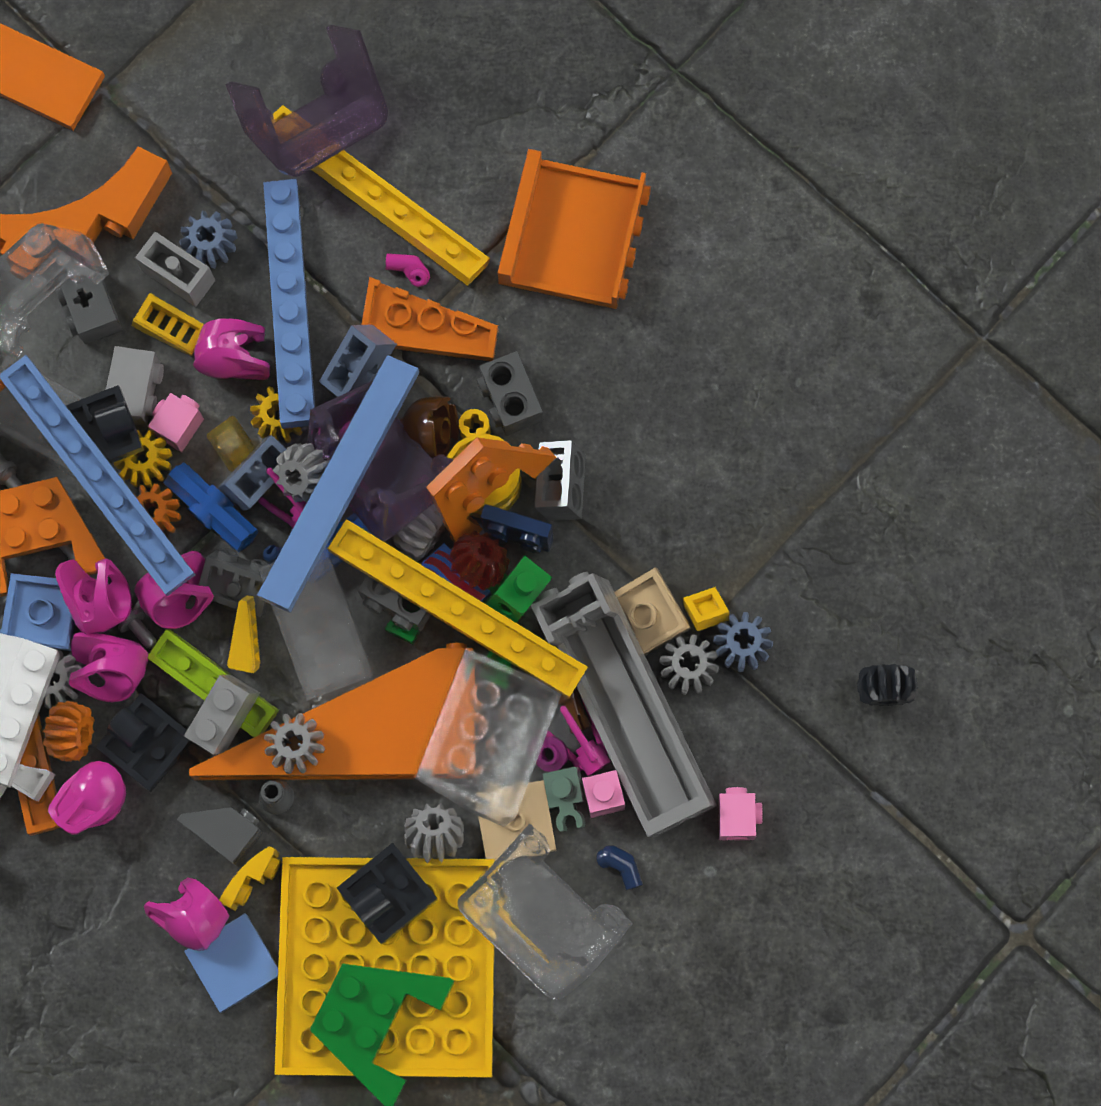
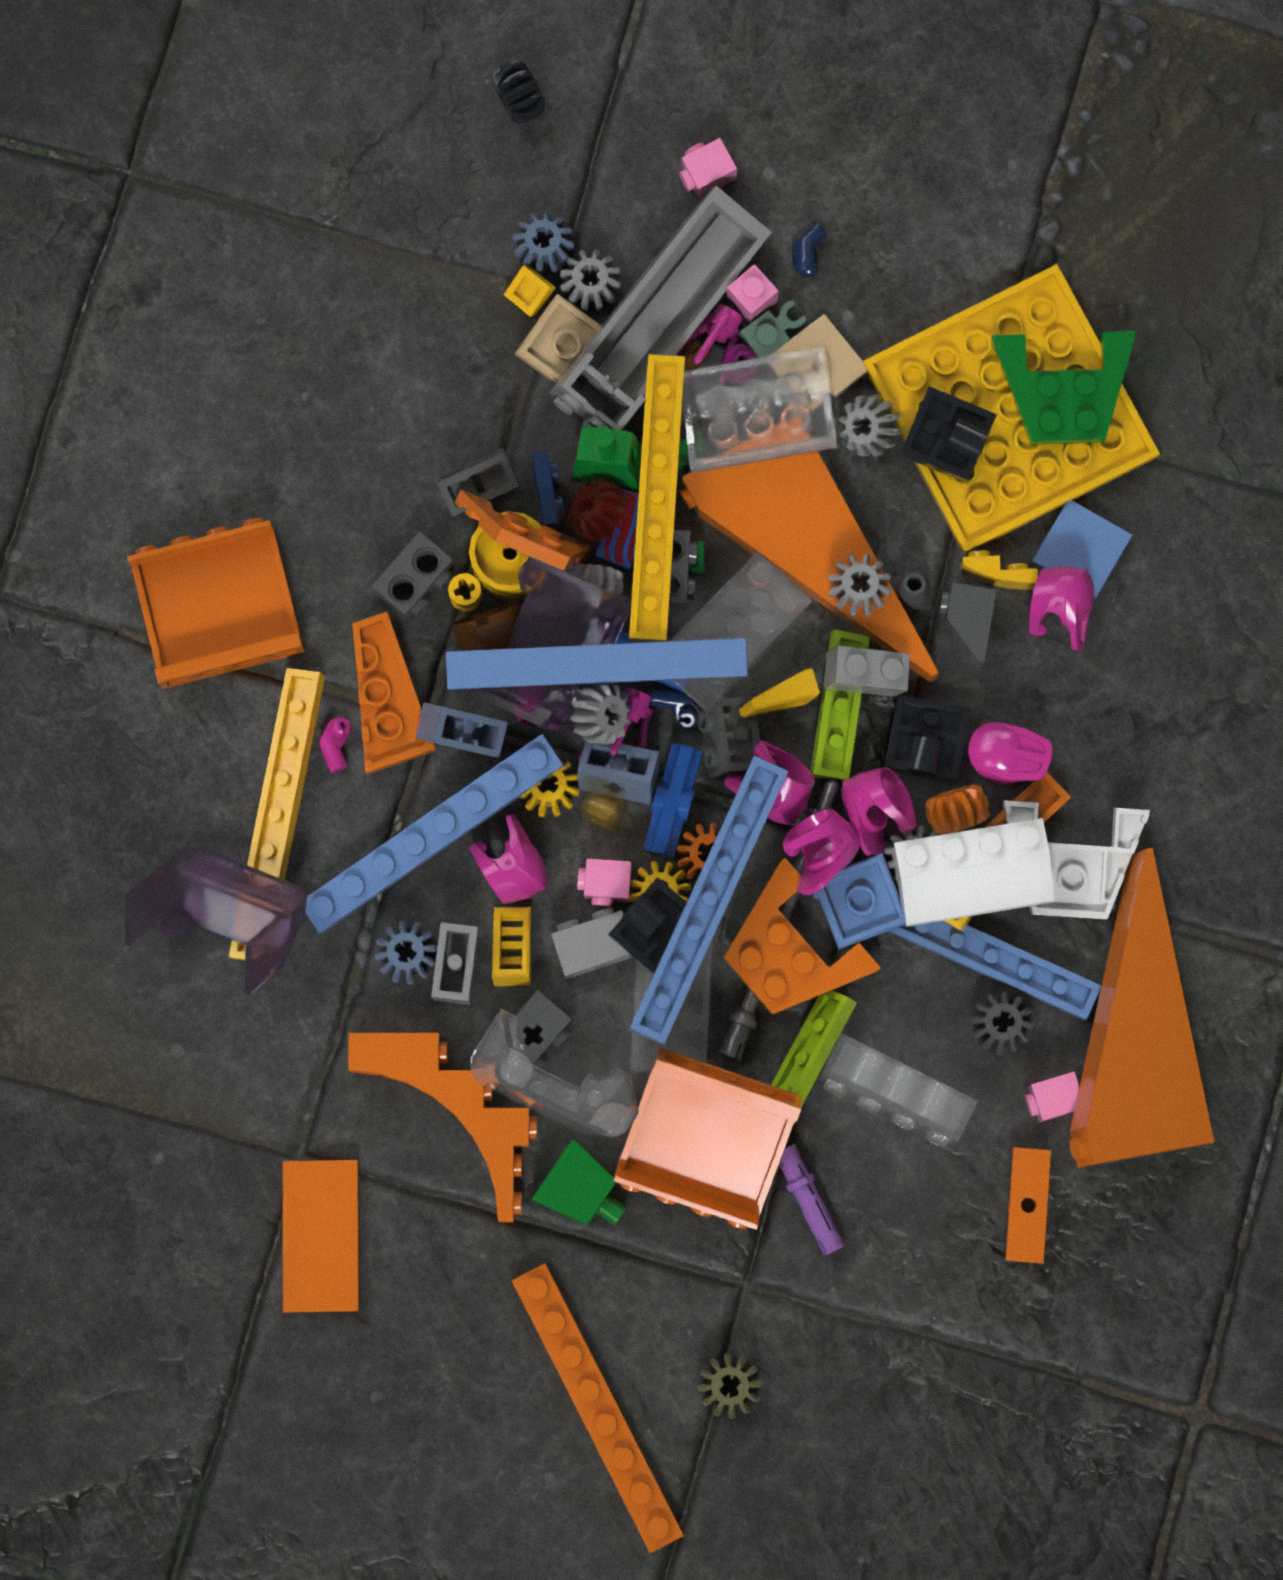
camera: 120 degrees left, 5 degrees up
(540, 918) = (896, 287): clear windscreen -> none

